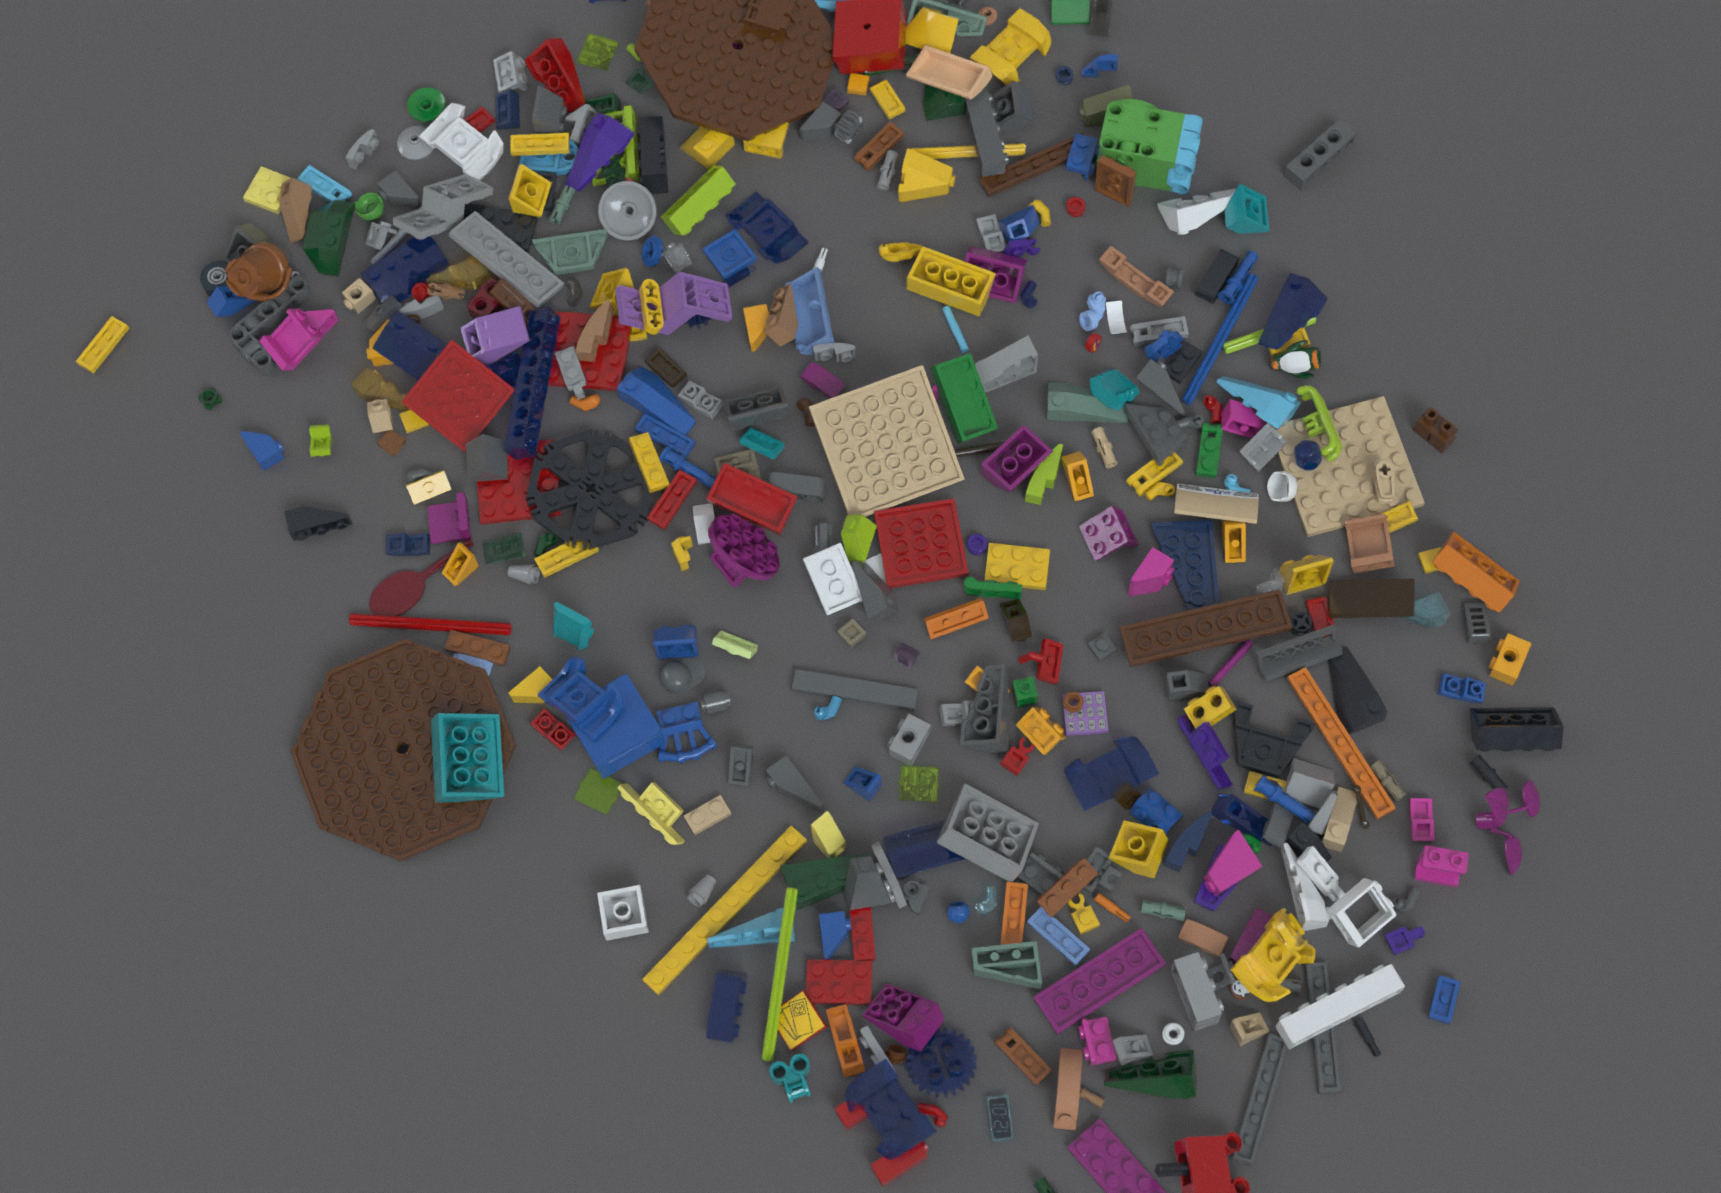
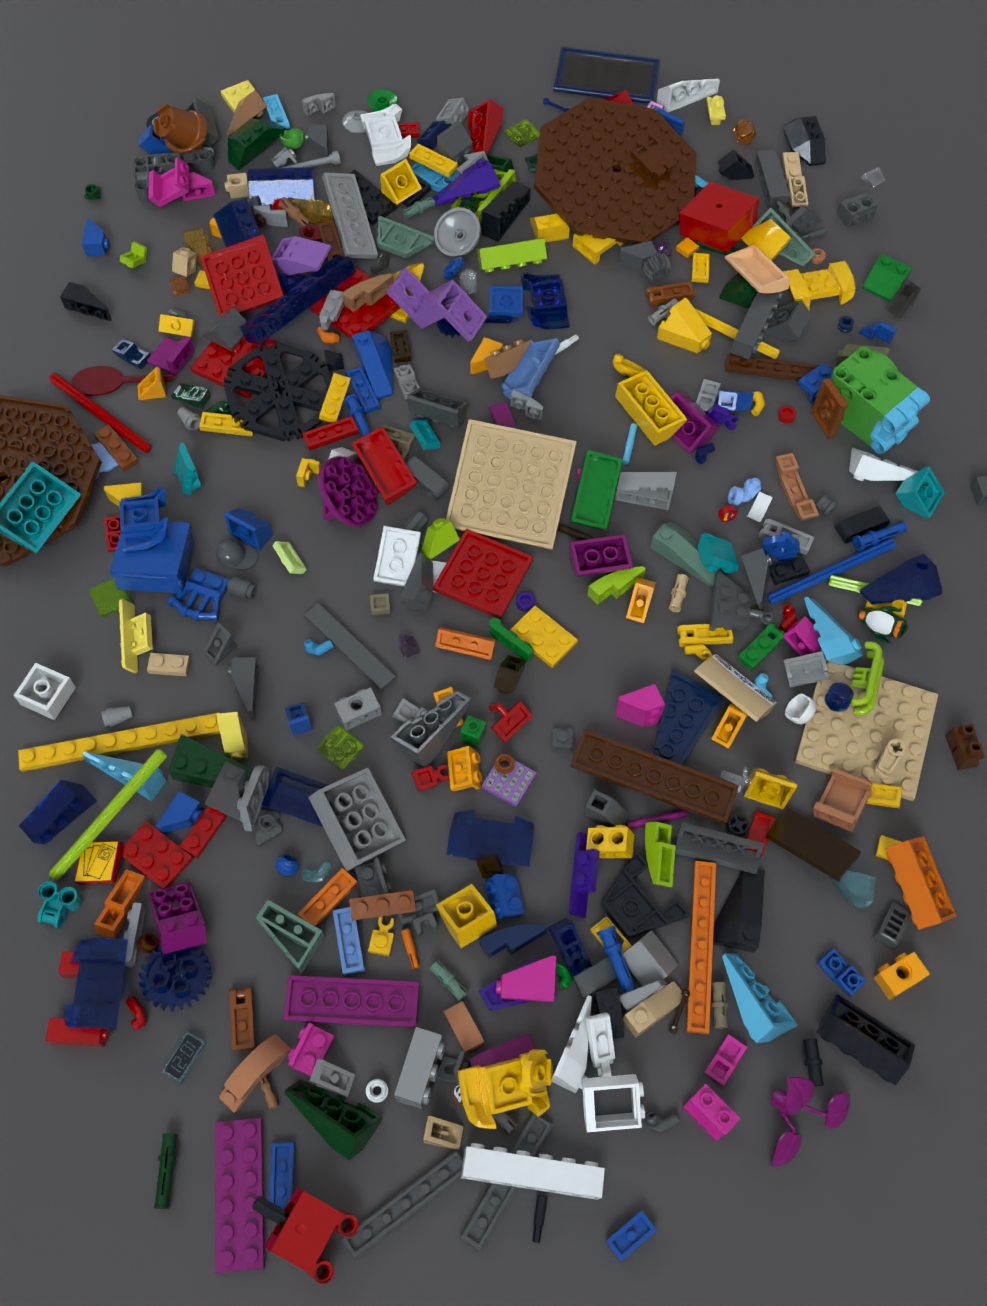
camera: 30 degrees right, 5 degrees down
(102, 344) = (58, 124): yellow plate -> none
(442, 206) = (335, 159): light grey bracket -> none
(612, 424) = (333, 360): none -> black slope
(655, 299) = (412, 298): yellow beam -> none
(1108, 533) = (633, 655): bracket -> none
(1148, 1145) = (282, 1173): none -> blue tile
(1255, 689) = (660, 853): none -> lime slope
(1402, 940) = (630, 1153): dark purple plate -> none
(1423, 764) = (758, 1010): none -> medium azure wedge

